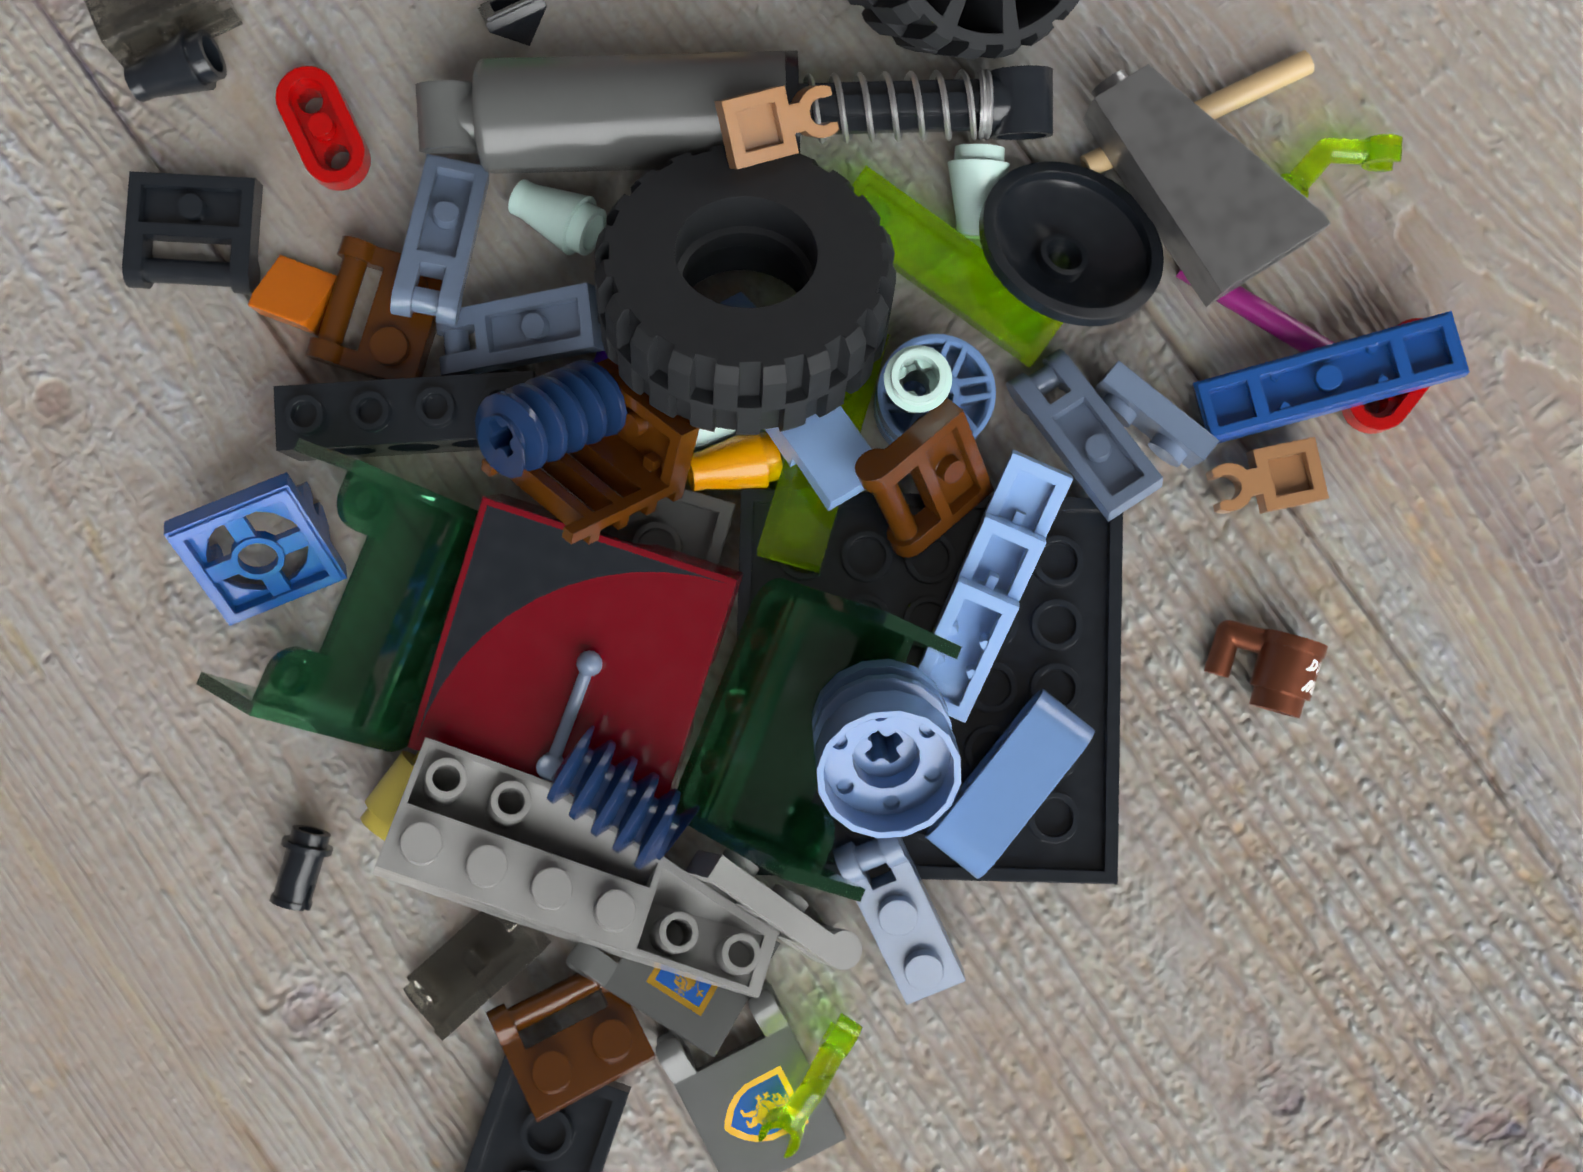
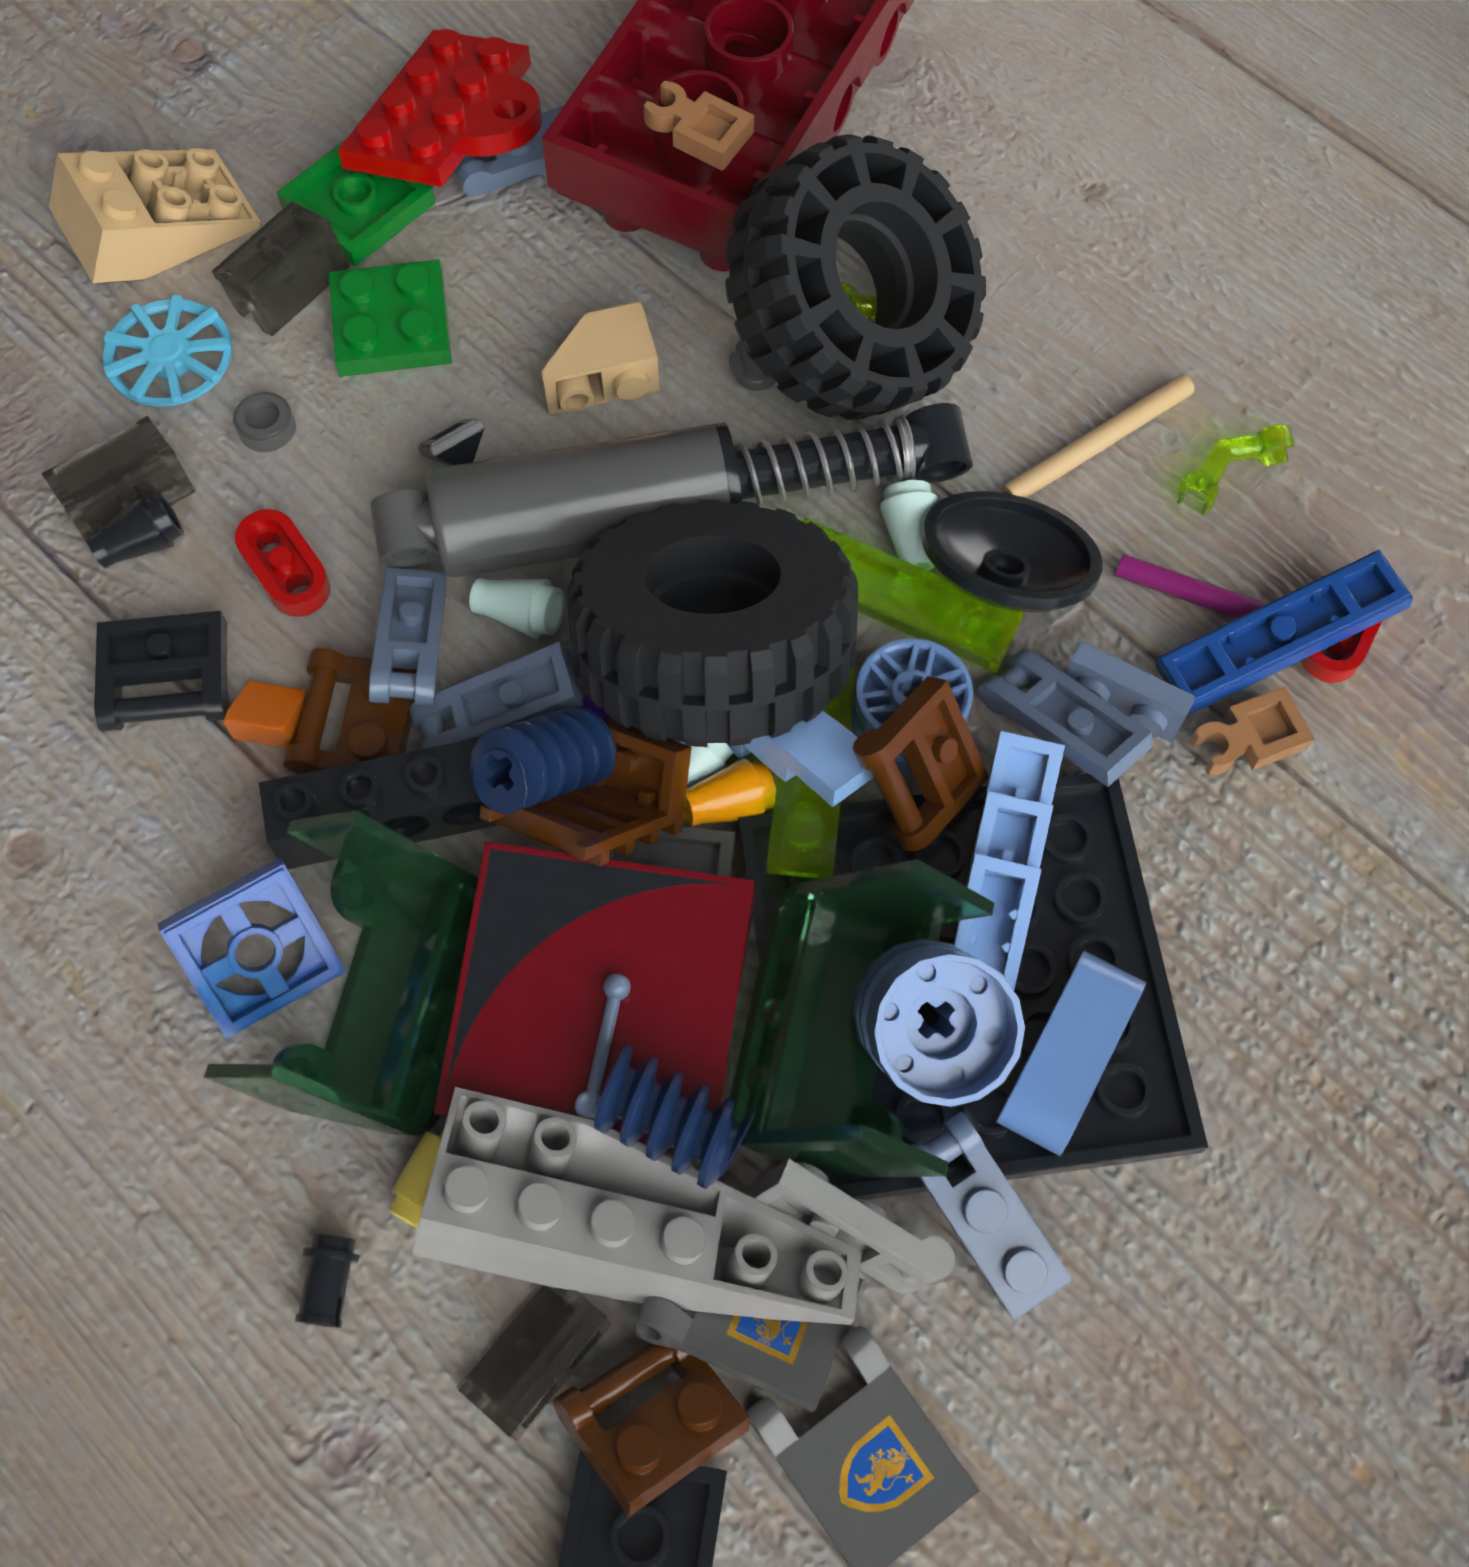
camera: 10 degrees left, 20 degrees down
(764, 124) = (709, 476): medium nougat plate -> none
(833, 1049) = (931, 1425): clear neon green arm -> none
(920, 365) = (896, 666): light aqua cone -> none
(1198, 184) = (1123, 489): flat silver slope -> none
(1283, 669) = (1317, 905): copper piece -> none

